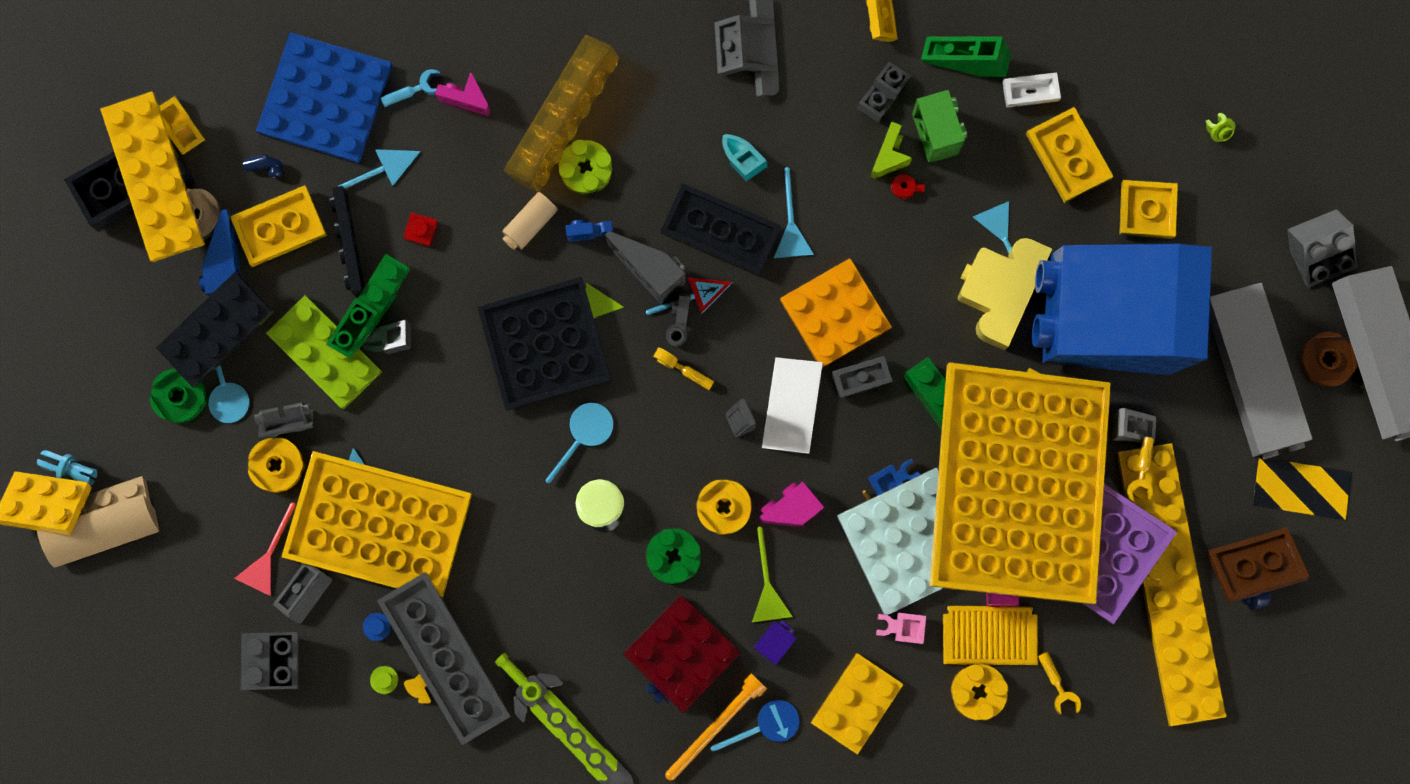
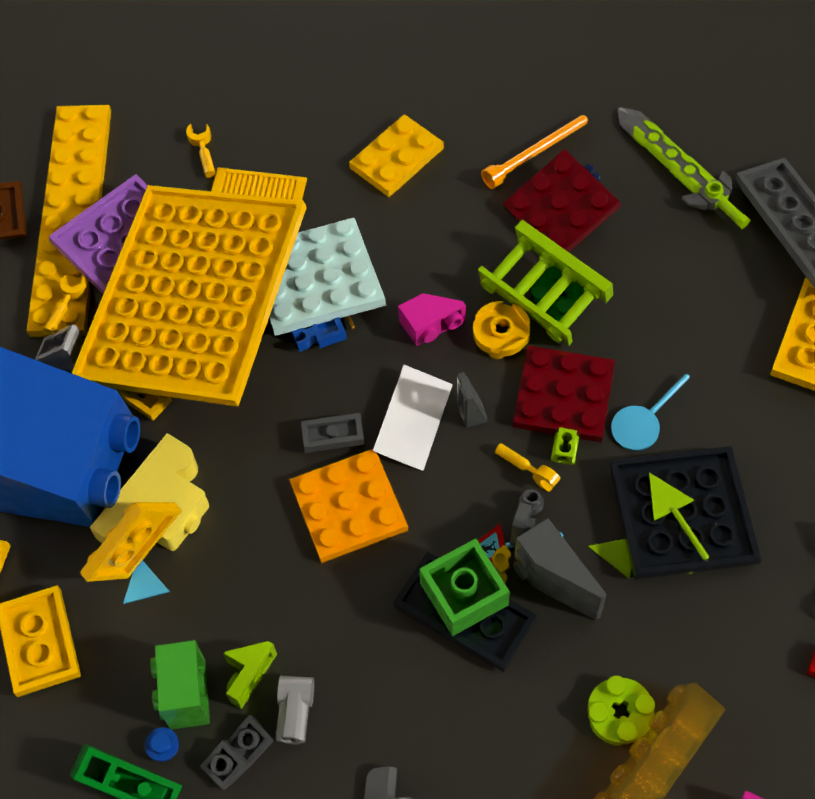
camera: 170 degrees left, 20 degrees down
(529, 221) = (694, 650): tan brick -> none
(559, 347) = (669, 499): none -> lime piece
(582, 230) = (628, 629): blue plate -> none
(600, 505) = (632, 343): yellowish green piece -> none
(658, 405) = (571, 436): none -> lime piece
(658, 449) = (564, 393): none -> dark red plate
(663, 566) = (550, 255): none -> lime fence
(696, 264) = (500, 561): none -> yellow piece
(723, 233) = (464, 587): none -> bright green brick
(743, 156) = (426, 694): teal plate -> none
(769, 604) = (466, 245): lime piece -> none
(775, 641) = (467, 205): dark purple brick -> none
(776, 721) = (478, 151): blue piece -> none
(792, 242) = (382, 592): medium azure piece -> none
(847, 137) = (294, 699): none -> light grey piece
(906, 628) = (337, 204): bright pink plate -> none
(909, 182) = (233, 629): red piece -> none
(928, 387) = (262, 409): green brick -> none
(944, 83) = (162, 744): none -> blue plate
(964, 696) = (278, 138): yellow plate -> none
(1013, 229) = (130, 540): none -> yellow plate
(1045, 87) = (42, 721): white piece -> none

